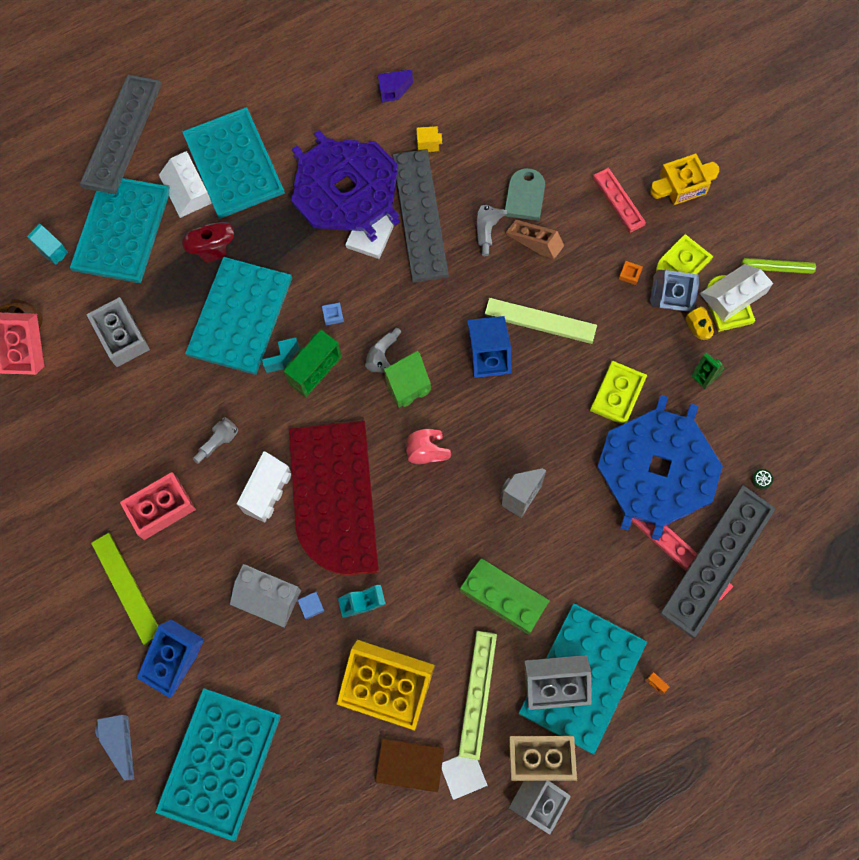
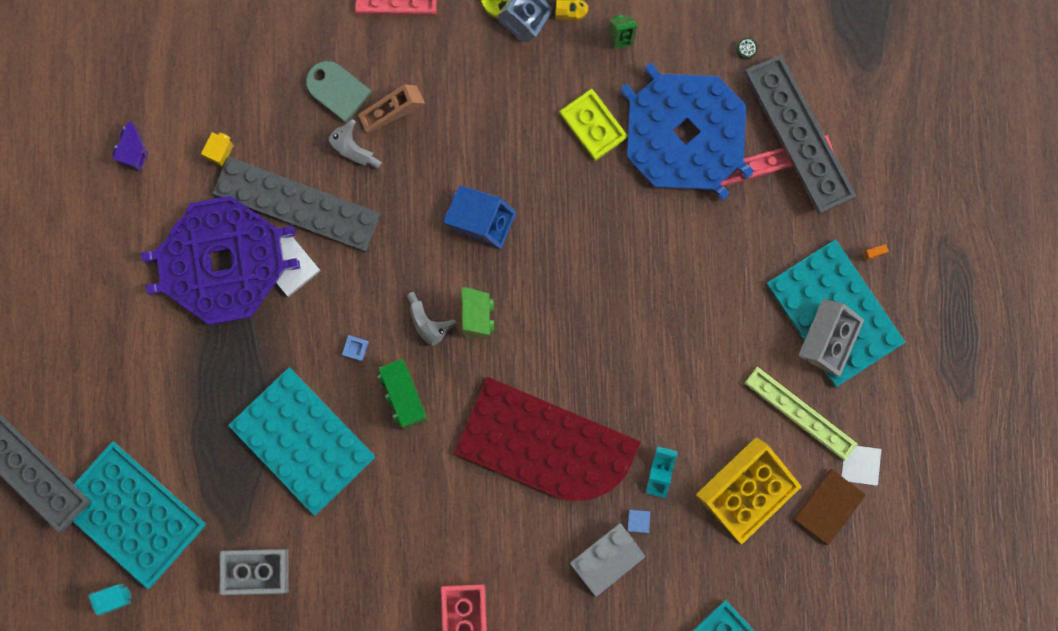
camera: 65 degrees left, 10 degrees up
(185, 185) = (122, 423): white slope -> none
(209, 241) = (204, 446): dark red piece -> none
(223, 432) = (420, 518): light grey animal -> none
(233, 163) = (122, 360): teal plate -> none
(264, 487) = (505, 505): white slope -> none
(287, 351) = (371, 414): teal slope -> none
(422, 450) = (549, 339): coral helmet -> none
(504, 596) = (727, 339): bright green slope -> none
(521, 490) = (647, 270): light grey slope -> none
(540, 803) = (920, 411): light grey slope -> none
(541, 320) = (479, 153): yellowish green tile -> none
(542, 758) = (889, 388): tan slope -> none
(630, 272) = (479, 40): orange tile -> none

